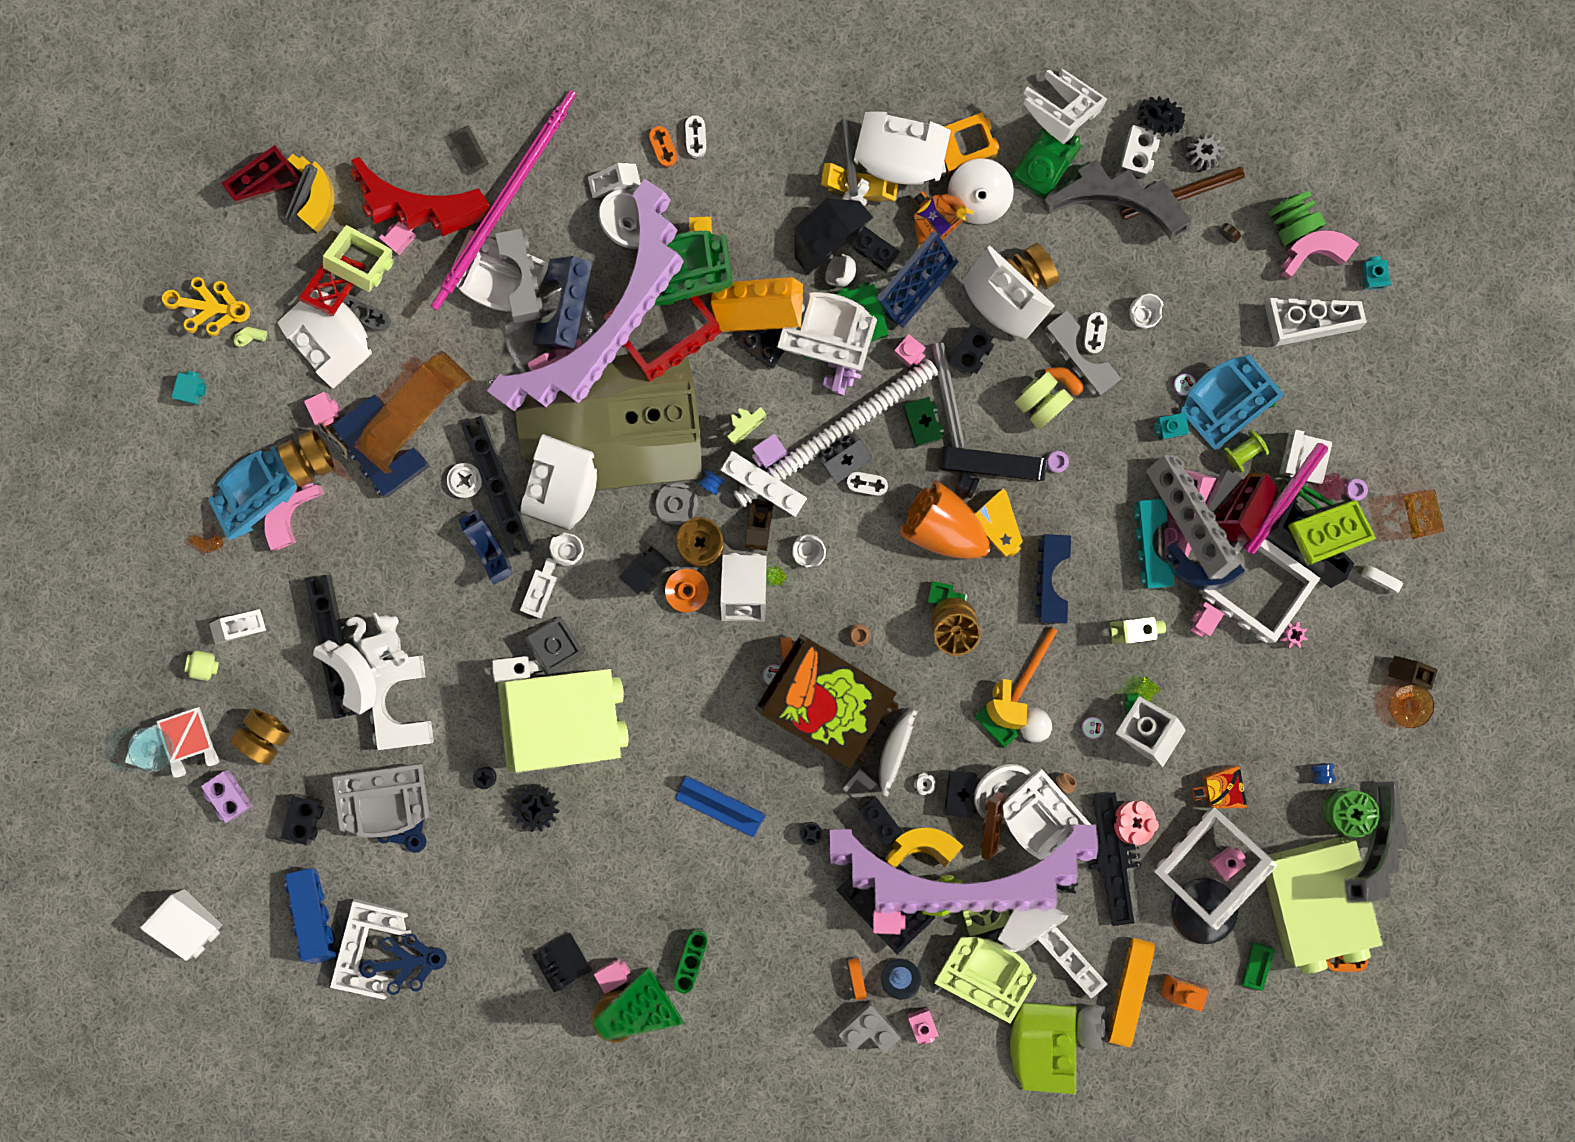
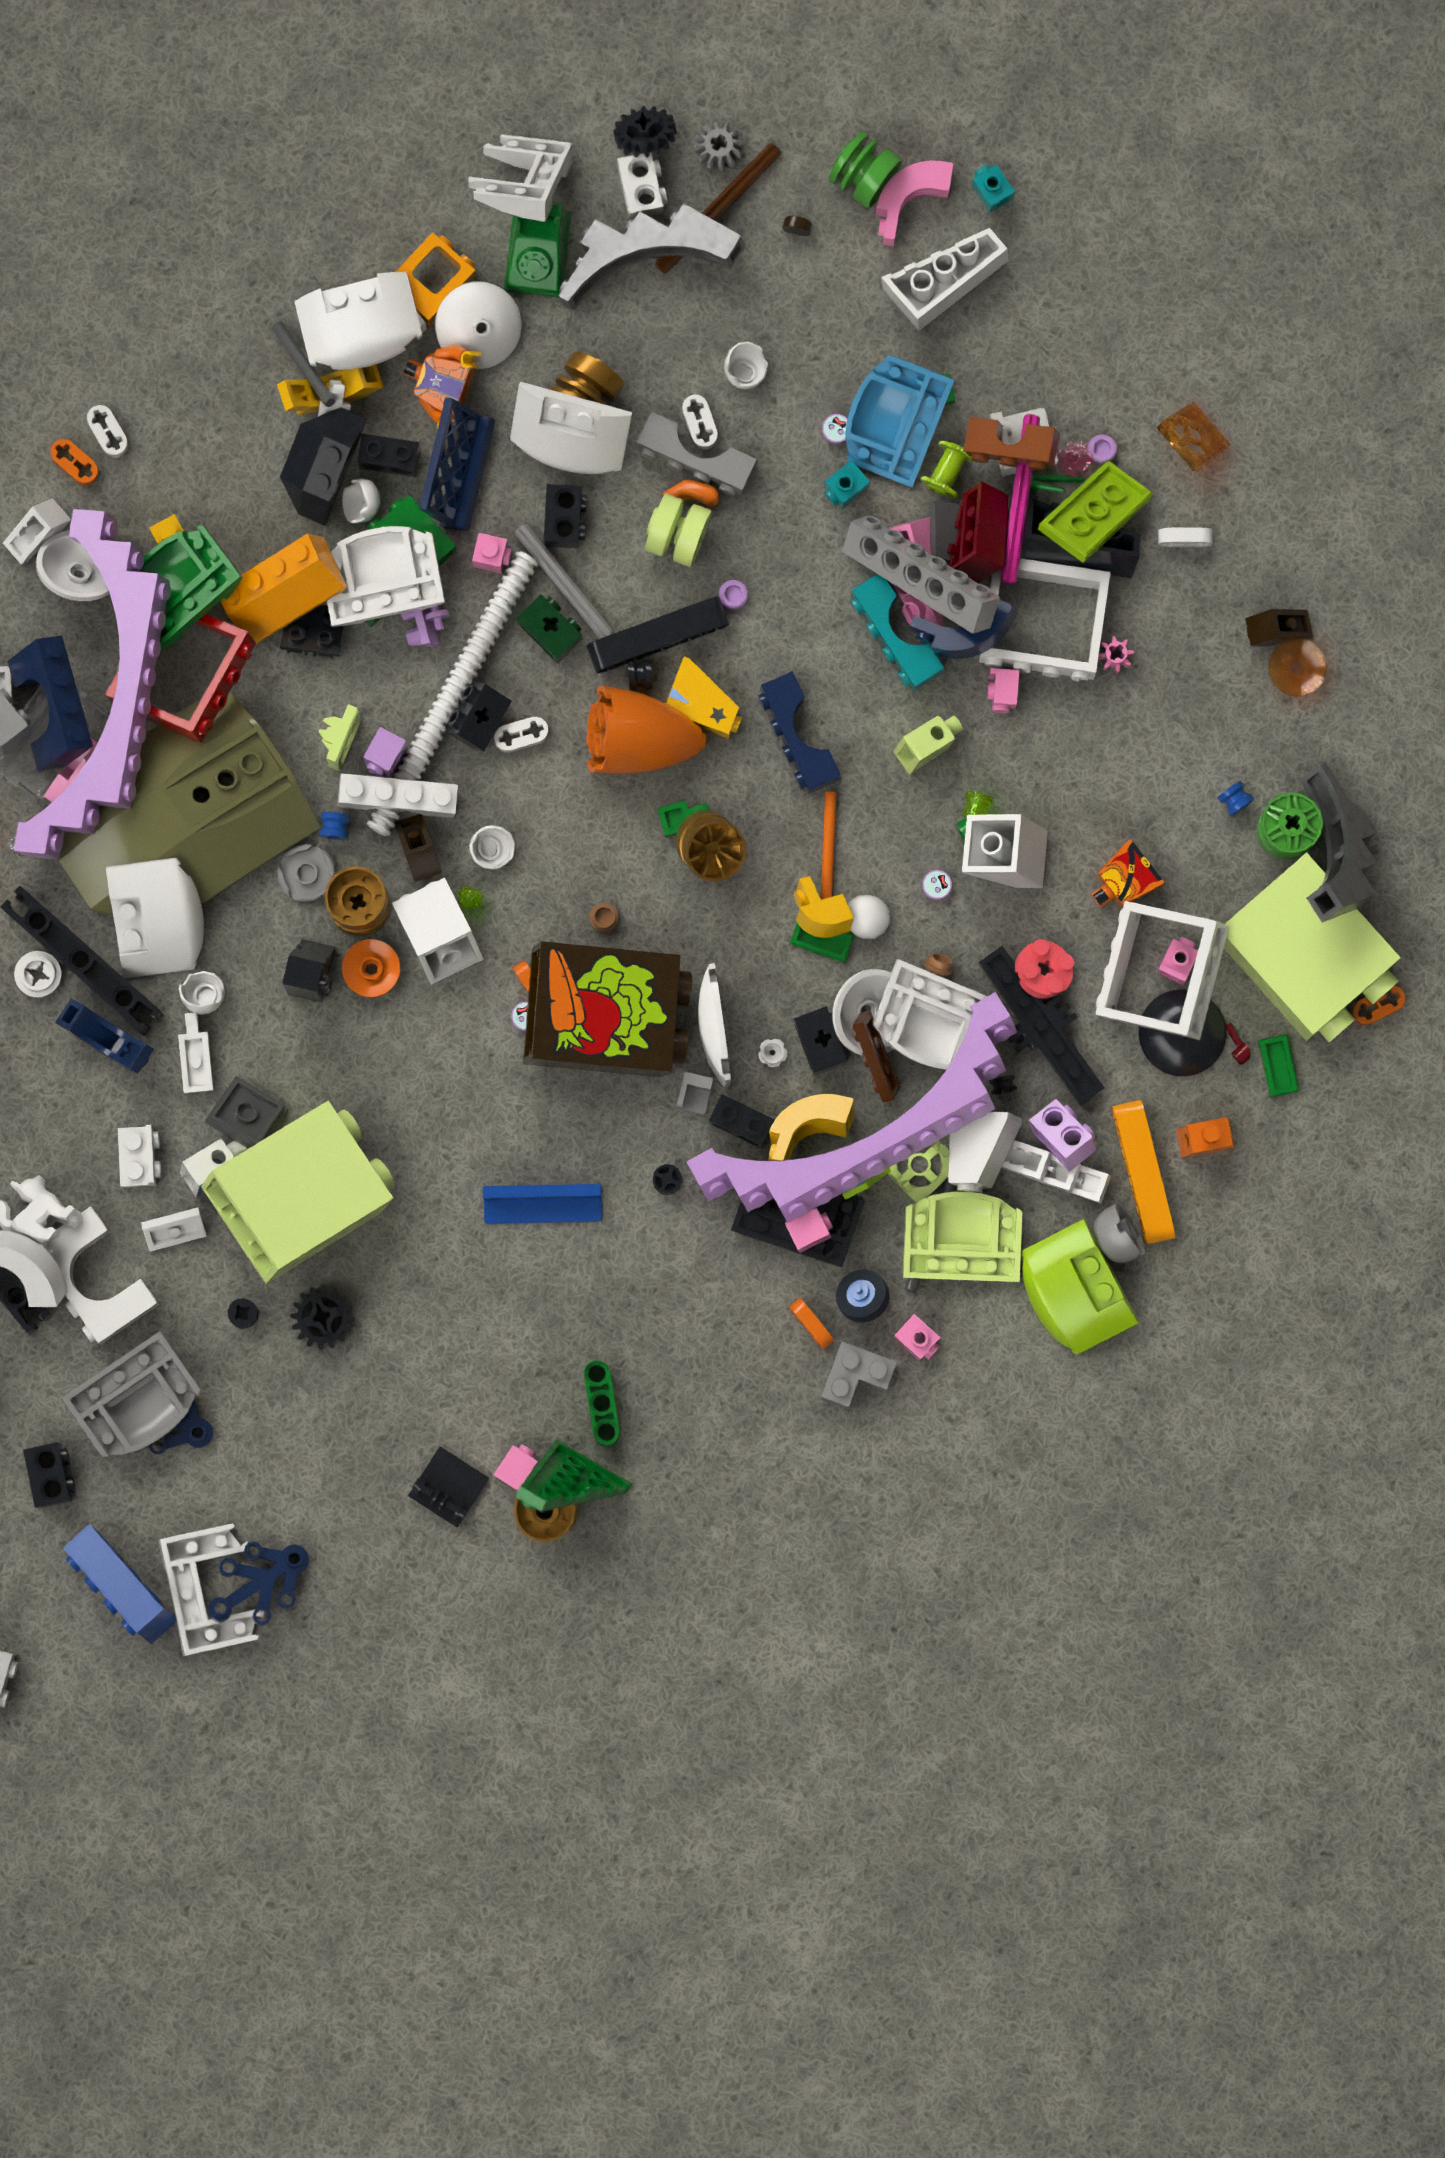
camera: 30 degrees left, 5 degrees down
(467, 698) = (173, 1229): none -> white plate
(469, 636) = (138, 1156): none -> white bracket
(1086, 942) = (1058, 1137): none -> lavender brick
(1238, 945) = (1242, 1052): none -> dark red hand
(1315, 472) = (1036, 447): none -> dark orange arch

